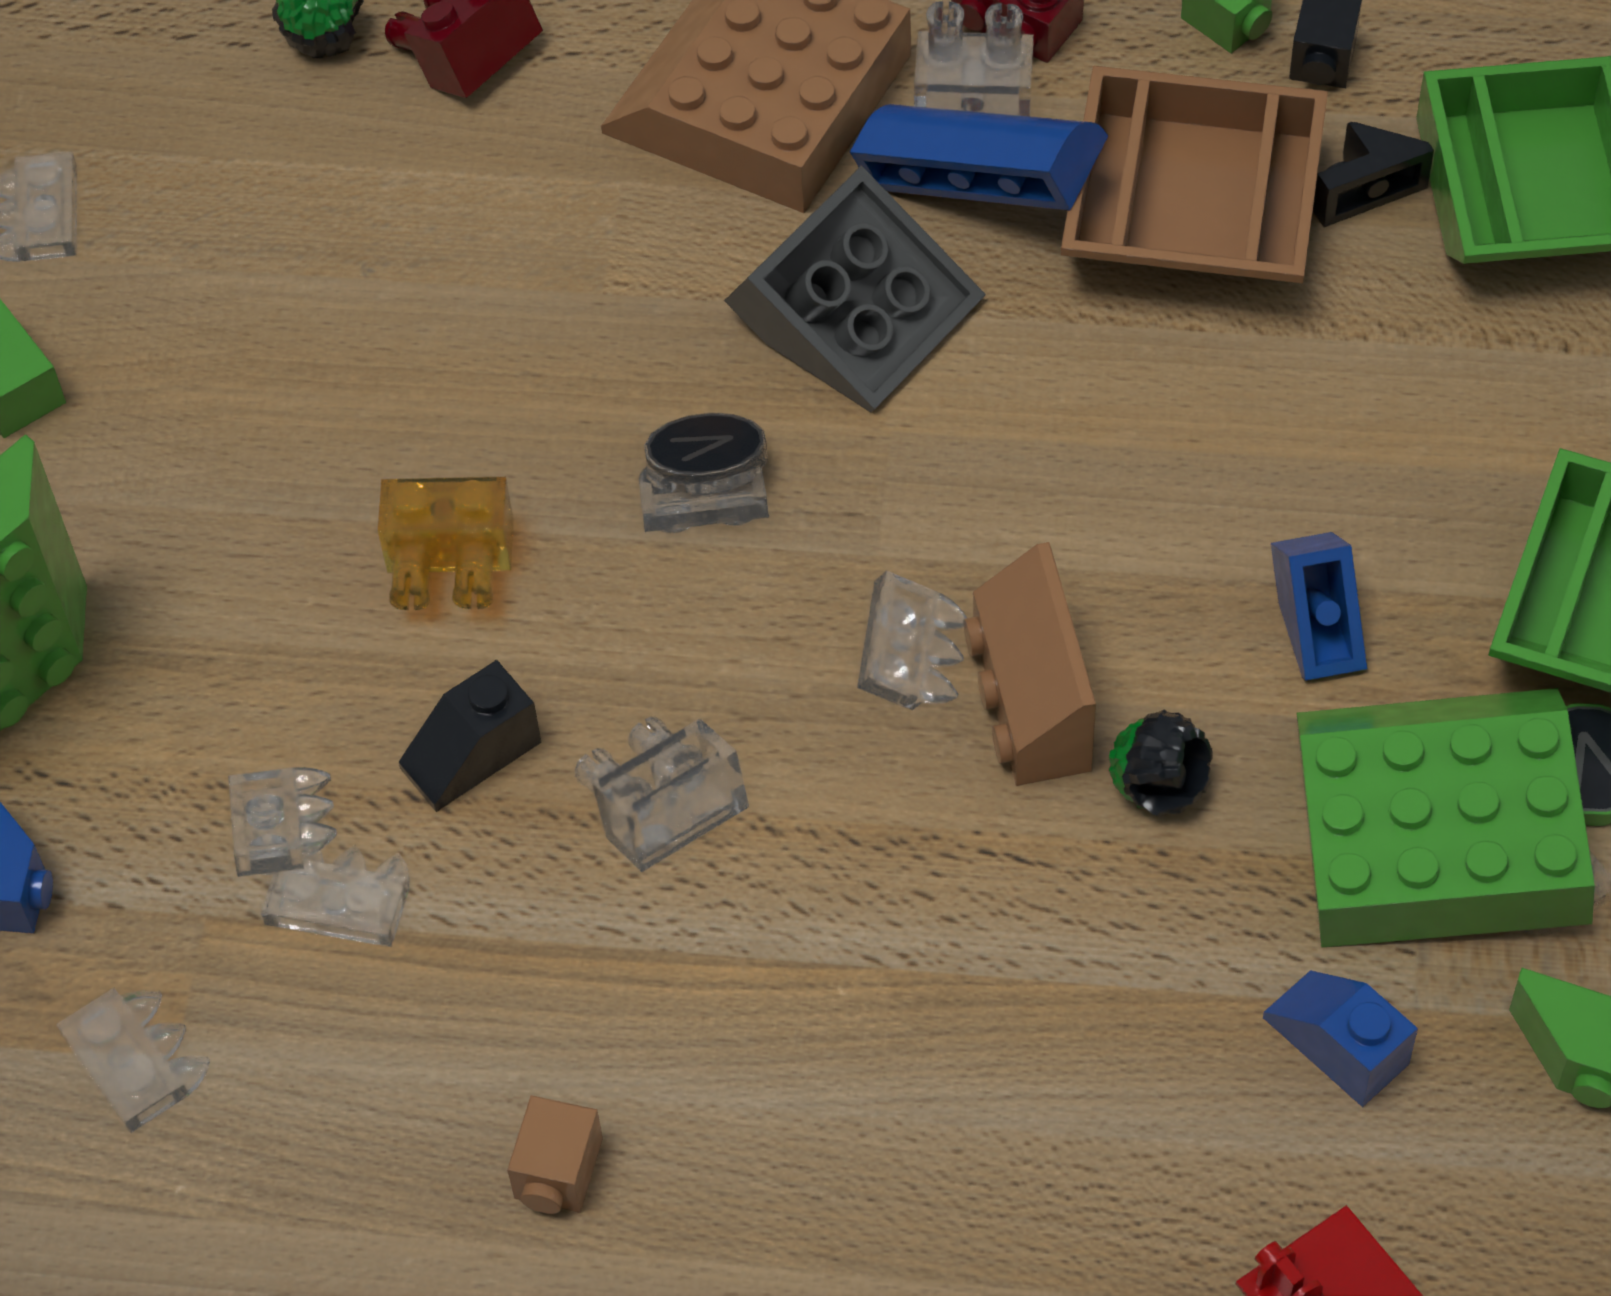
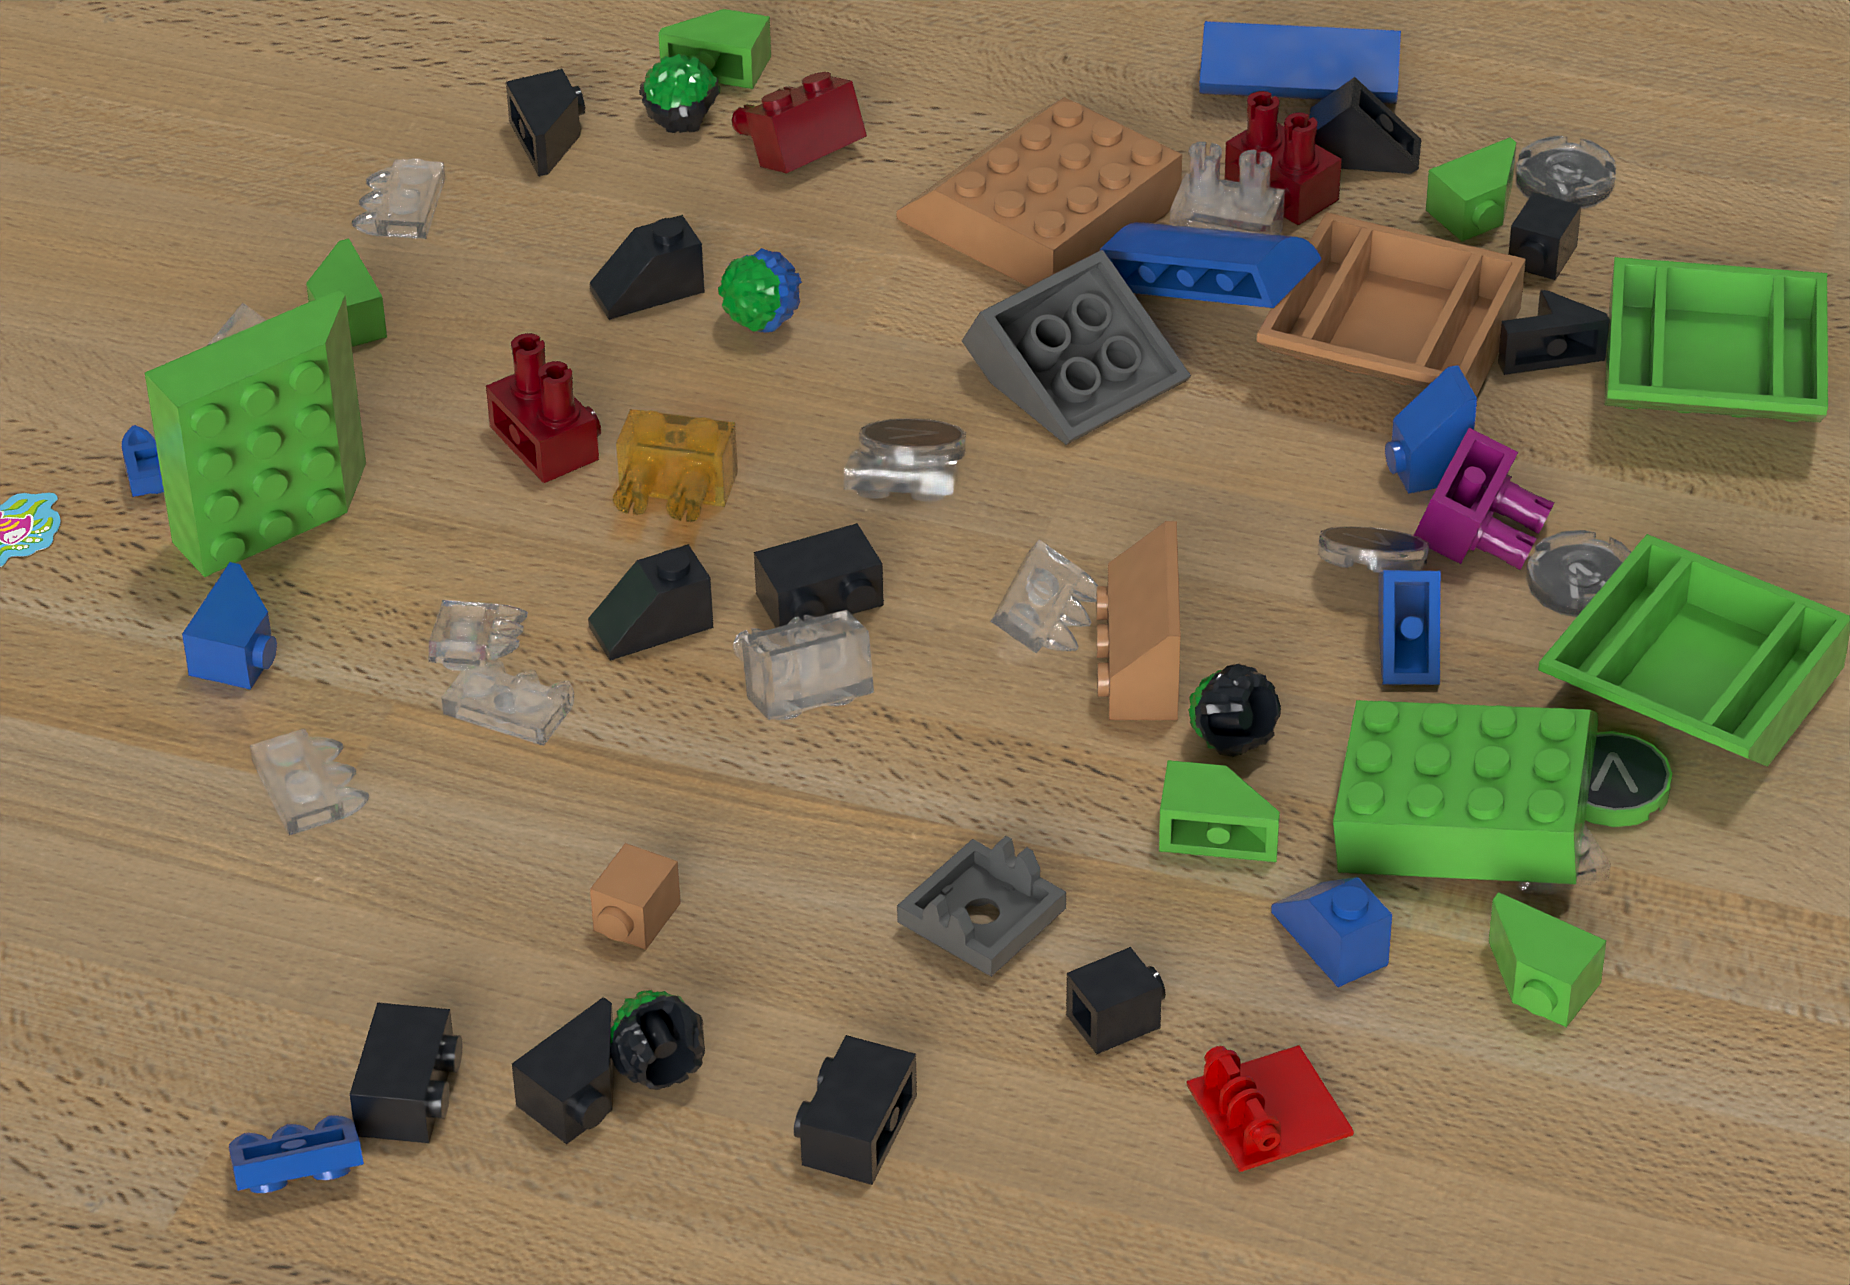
camera: 10 degrees right, 15 degrees down
(173, 69) = (545, 116): none -> black slope
(277, 495) = (540, 415): none -> dark red brick
(347, 263) = (651, 269): none -> black slope
(482, 276) = (760, 290): none -> green piece
(649, 663) = (819, 576): none -> black brick
(956, 1044) = (976, 879): none -> dark grey piece
(1131, 1190) = (1114, 1000): none -> black brick
(1173, 906) = (1215, 814): none -> bright green slope
(1254, 505) = (1373, 547): none -> tile
(1284, 340) = (1431, 431): none -> blue slope
(1339, 423) = (1468, 496): none -> magenta brick
(1481, 488) = (1572, 569): none -> clear tile

